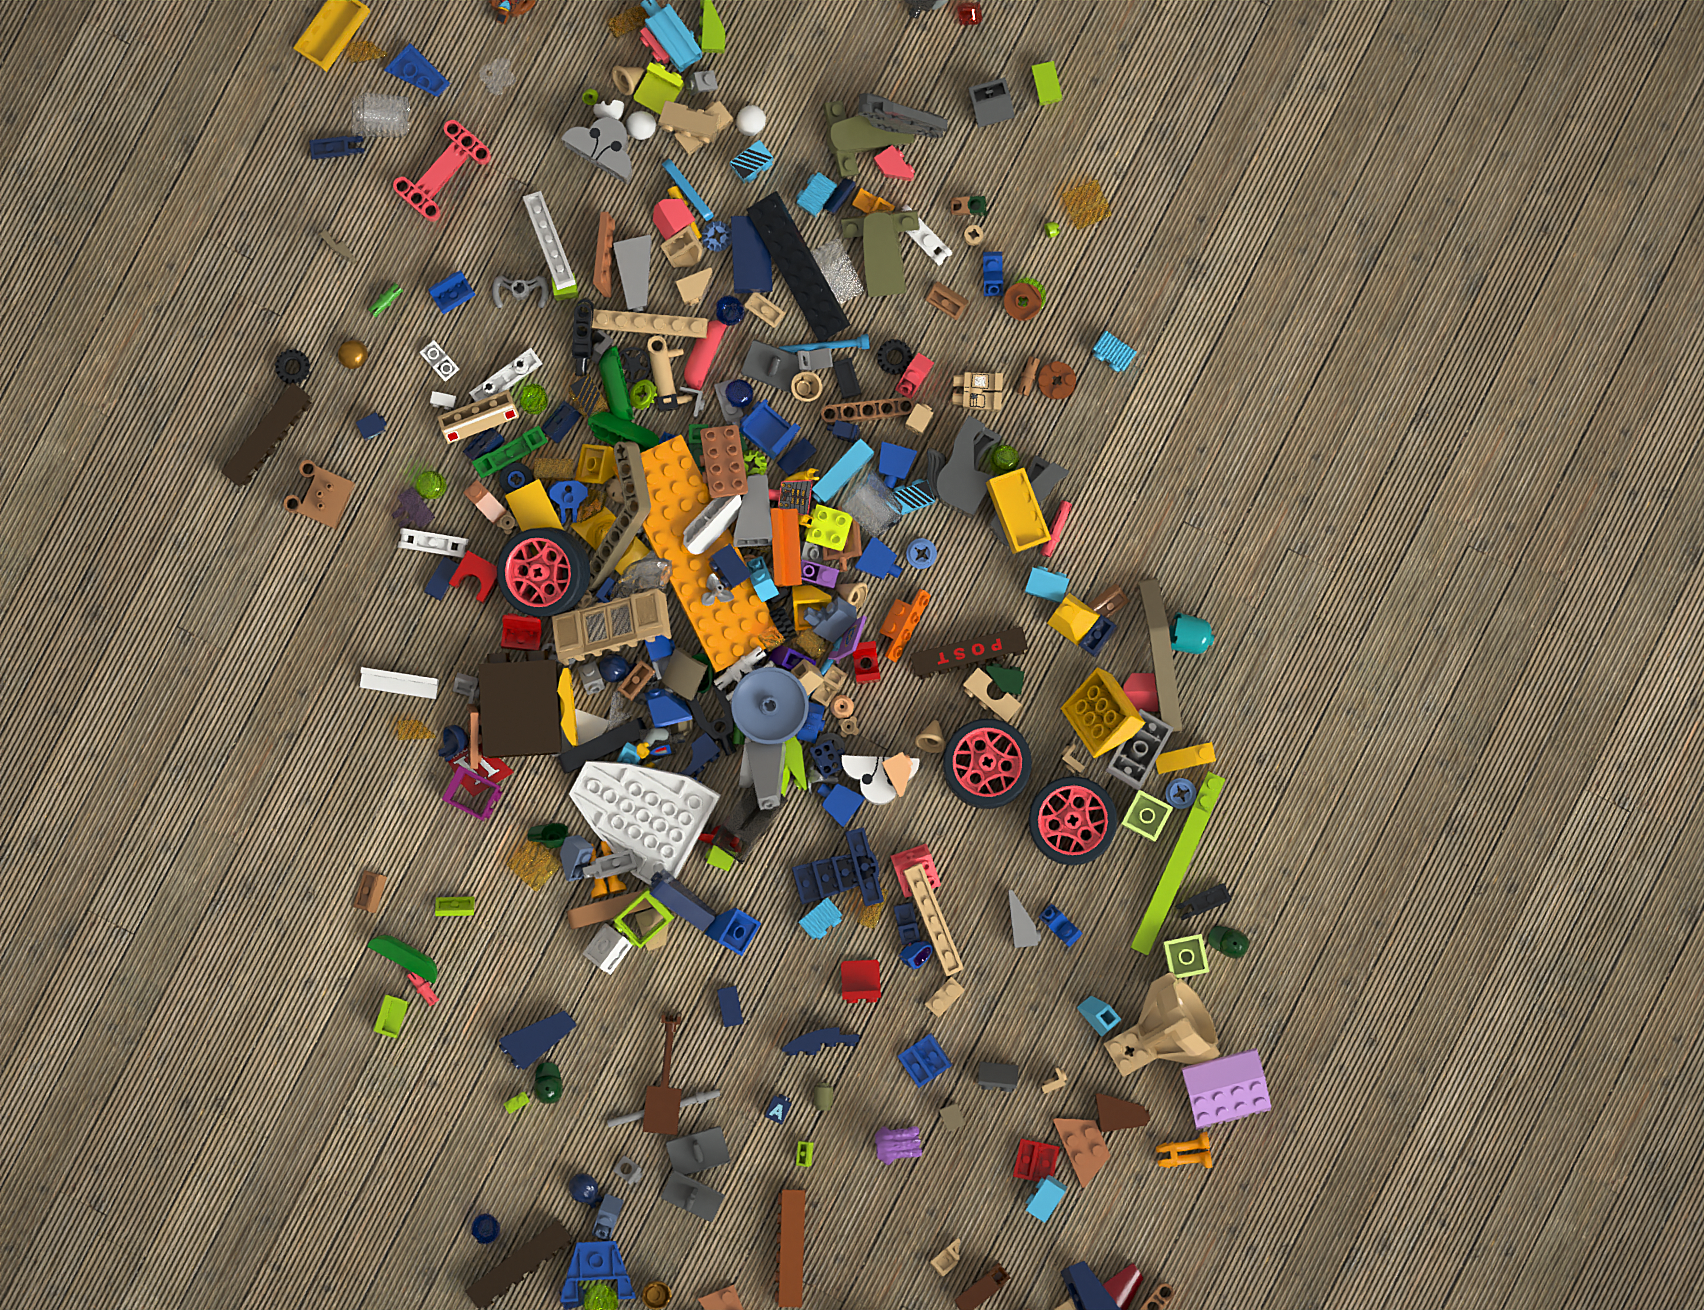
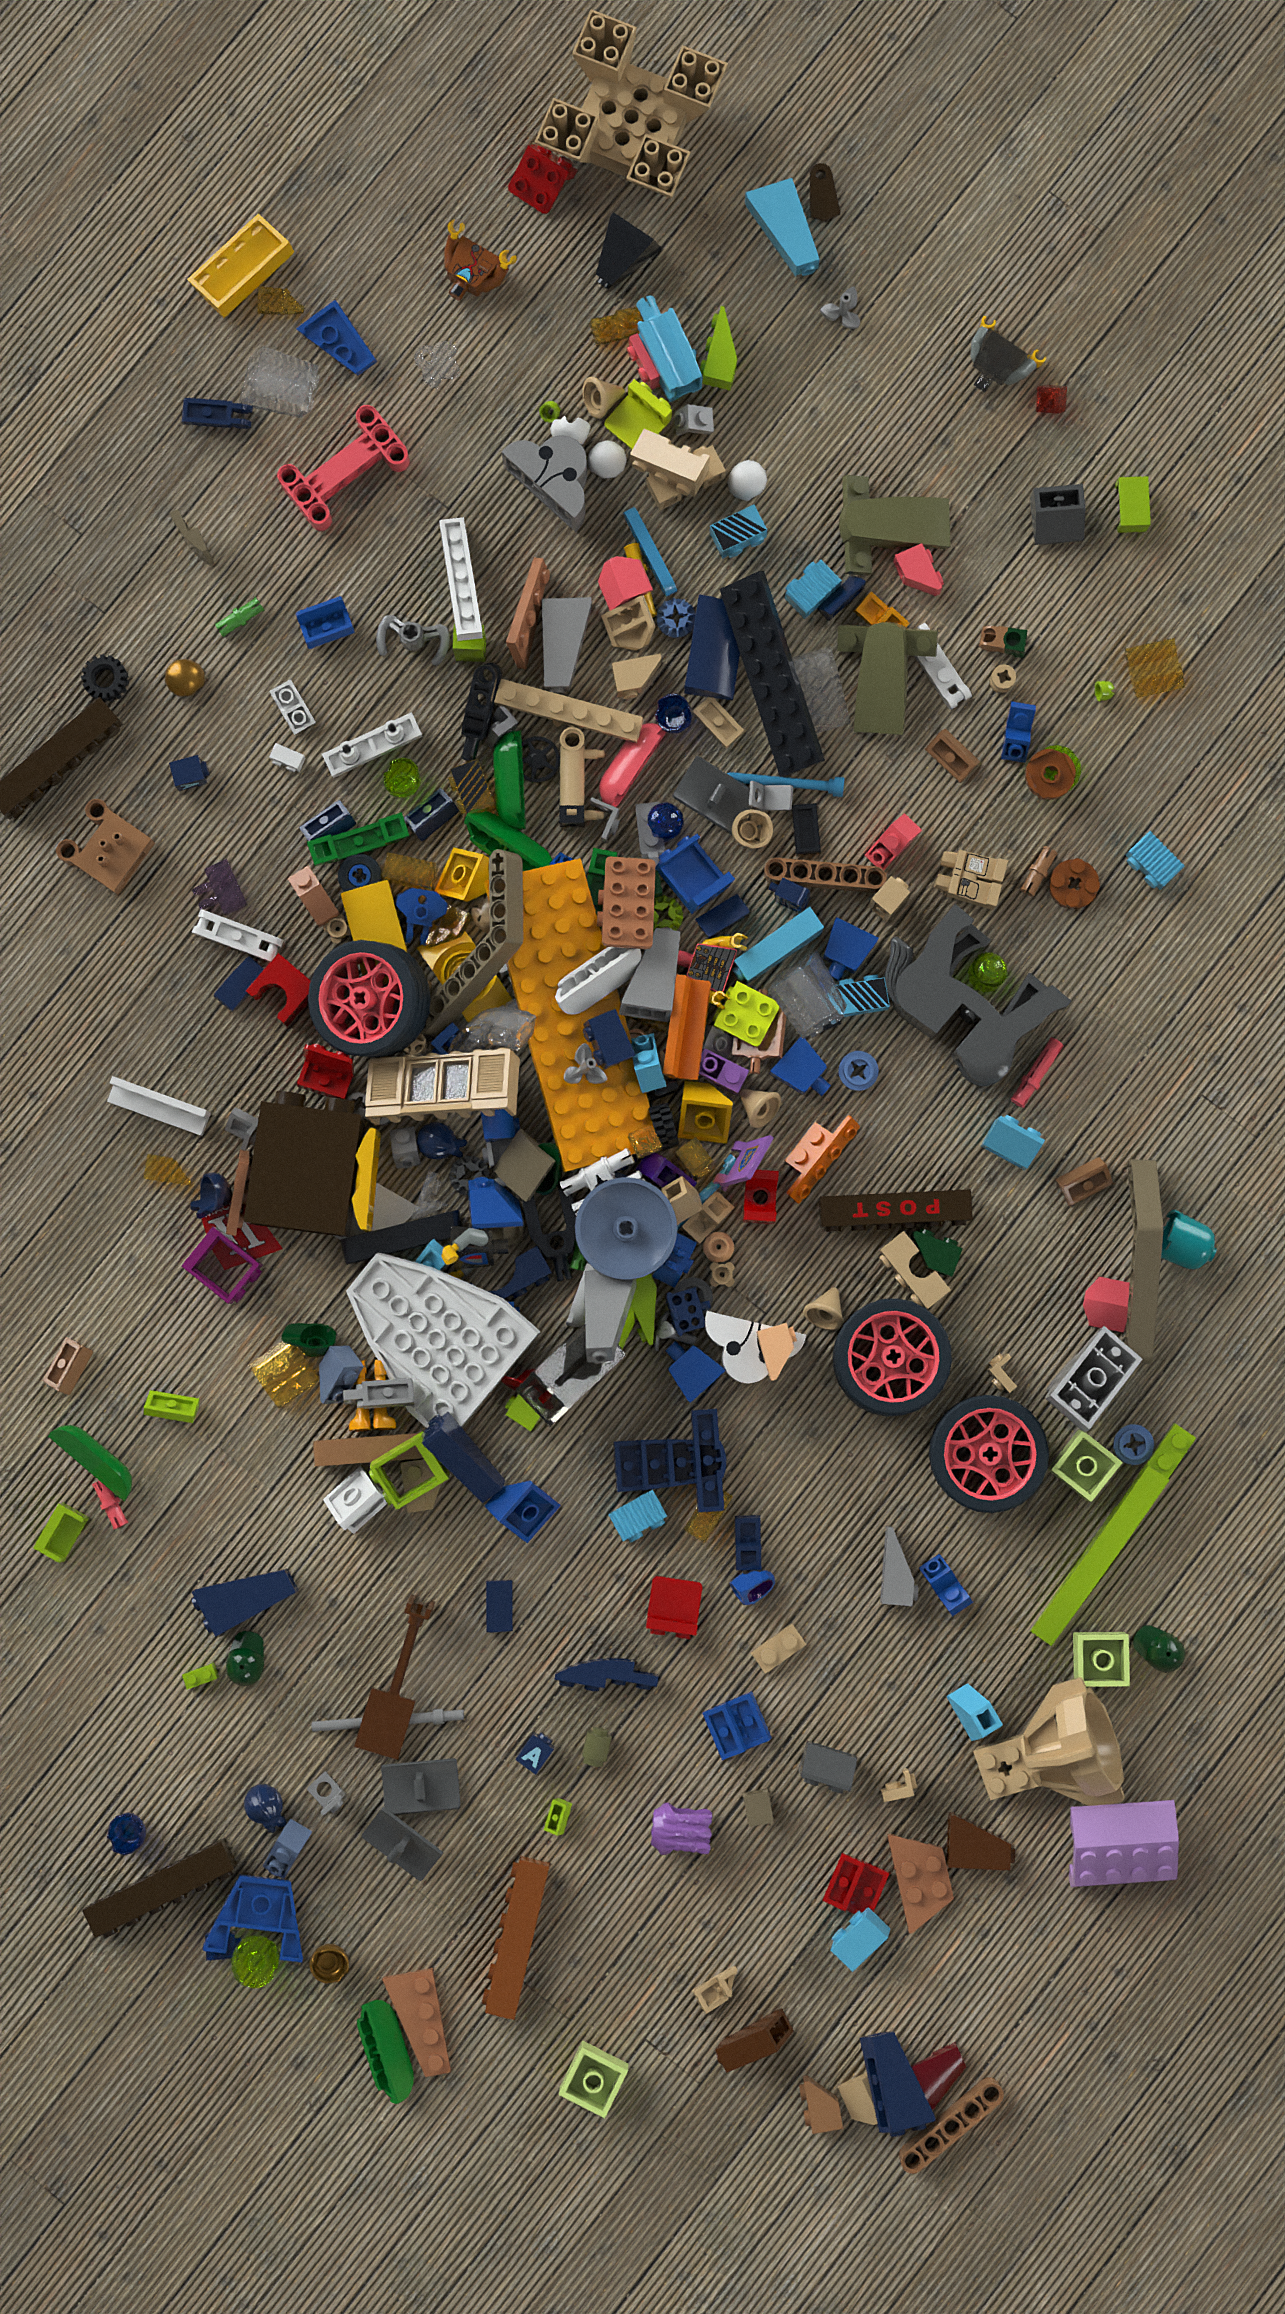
camera: 15 degrees right, 0 degrees up
(430, 485) = (250, 862): clear neon green hair -> none
(478, 416) = (326, 786): tan brick -> none
(636, 680) = (461, 1161): medium nougat slope -> none
(638, 390) = (540, 792): lime gear -> none
(832, 620) = (727, 1134): sand blue hinge -> none
(894, 345) = (879, 800): black tyre -> none
(900, 118) = (940, 507): dark grey connector -> none
(911, 857) = (772, 1476): coral bracket -> none
(933, 919) = (783, 1545): tan plate -> none
(1018, 510) = (996, 1039): yellow slope -> none
(1073, 619) = (1037, 1192): yellow slope -> none
(1098, 636) = (1065, 1220): dark blue slope -> none
(1102, 713) = (1053, 1322): yellow slope -> none
(1185, 758) = (1150, 1400): yellow slope -> none
(1201, 1142) = (1074, 1925): light orange piece -> none
(1206, 900) = (1139, 1590): black hinge -> none

